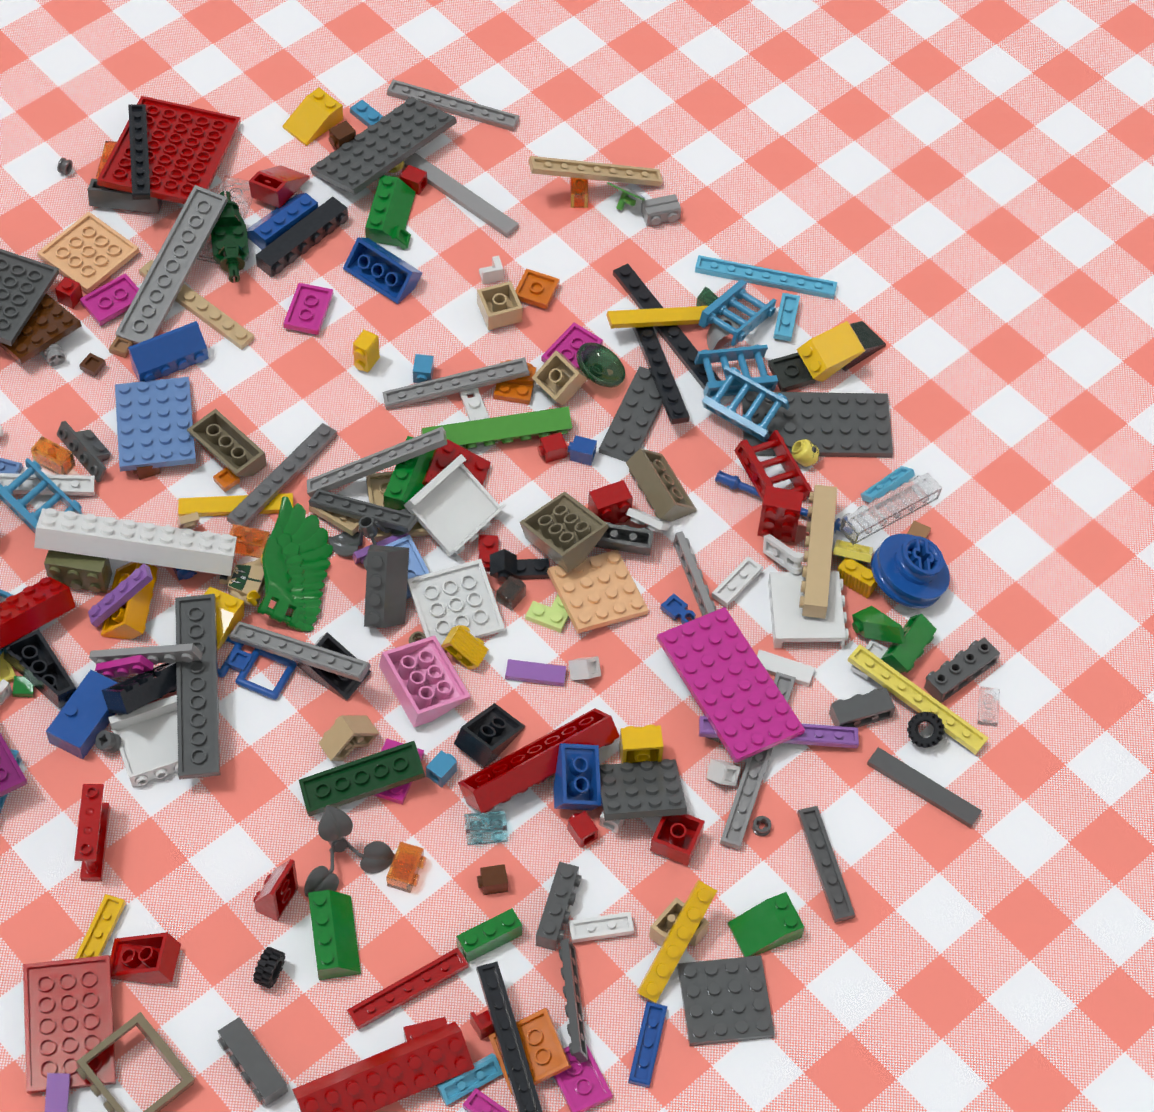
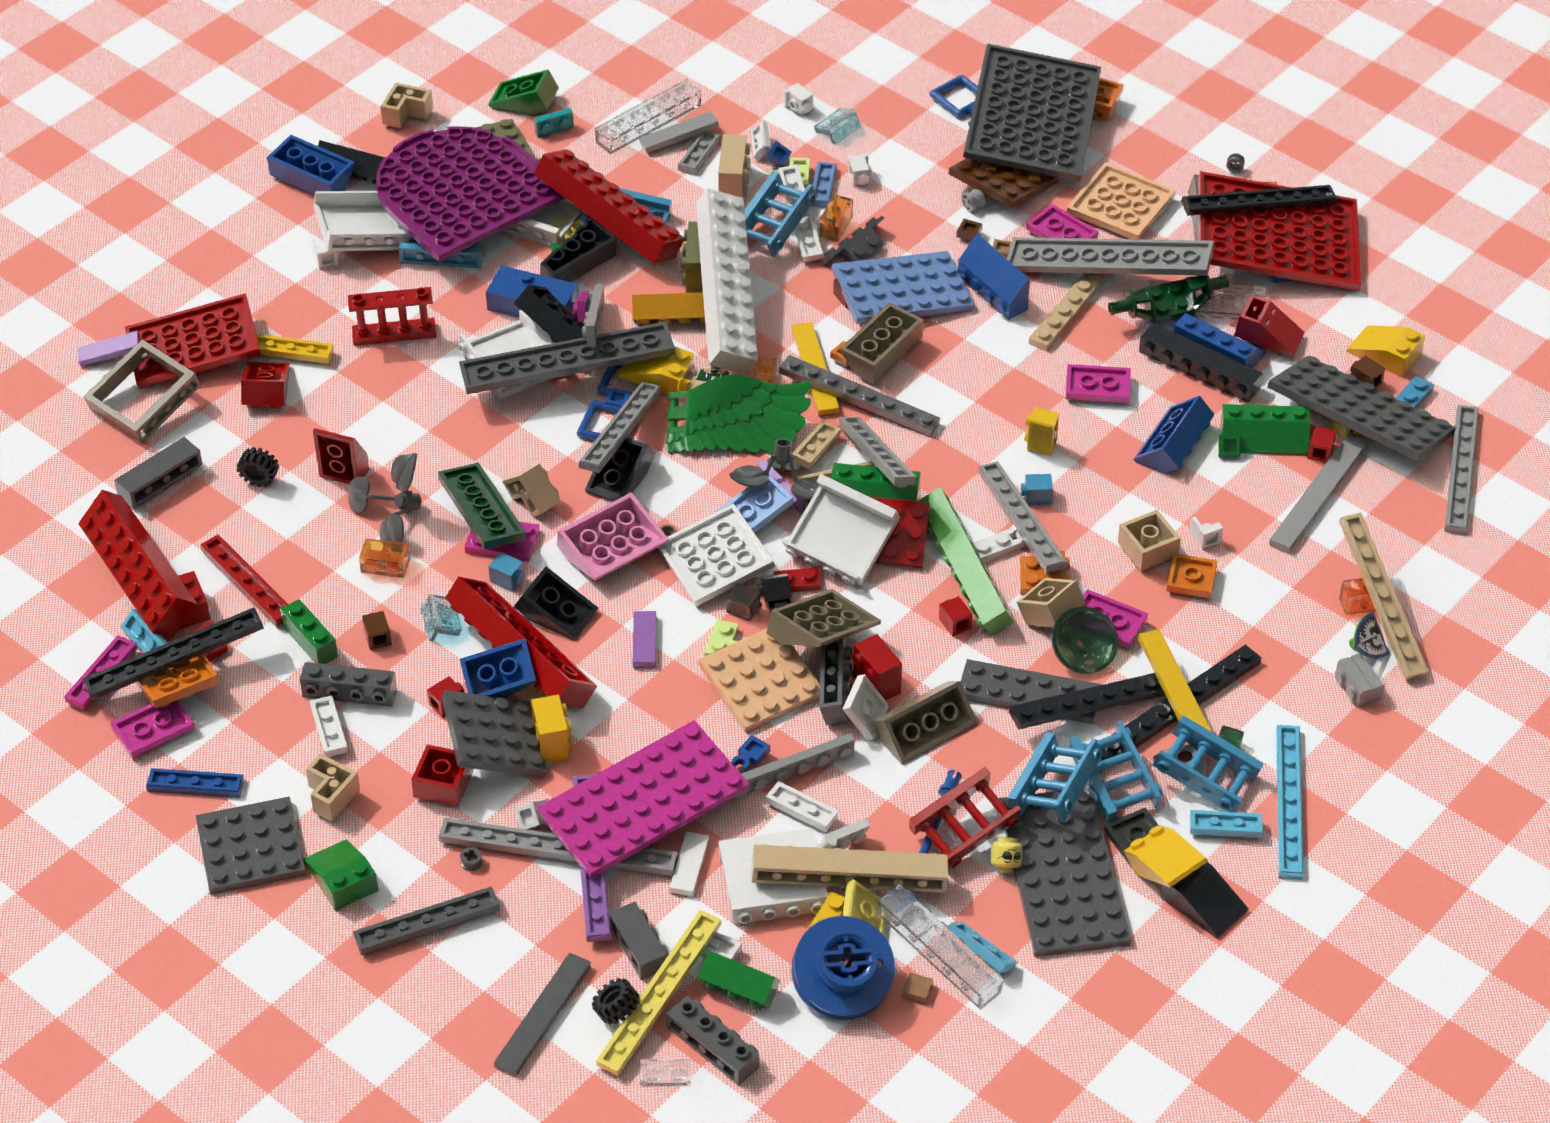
camera: 85 degrees right, 10 degrees down
(68, 292) = (1058, 193): red brick -> none
(108, 741) = (503, 316): dark grey wheel -> none
(120, 595) = (667, 286): medium lavender plate -> none
(188, 520) = (770, 322): tan plate -> none
(334, 934) = (302, 513): green slope -> none
(357, 509) = (814, 454): dark grey tile -> none
(386, 586) = (712, 478): dark grey slope -> none
(465, 647) = (658, 566): yellow brick -> none
(574, 1004) = (234, 705): dark grey plate -> none
(582, 450) = (958, 643): blue brick -> none
(584, 668) = (654, 677): white panel -> none
(676, 941) = (303, 776): yellow plate -> none
(780, 513) = (891, 817): red brick -> none
(877, 626) = (756, 938): green slope -> none

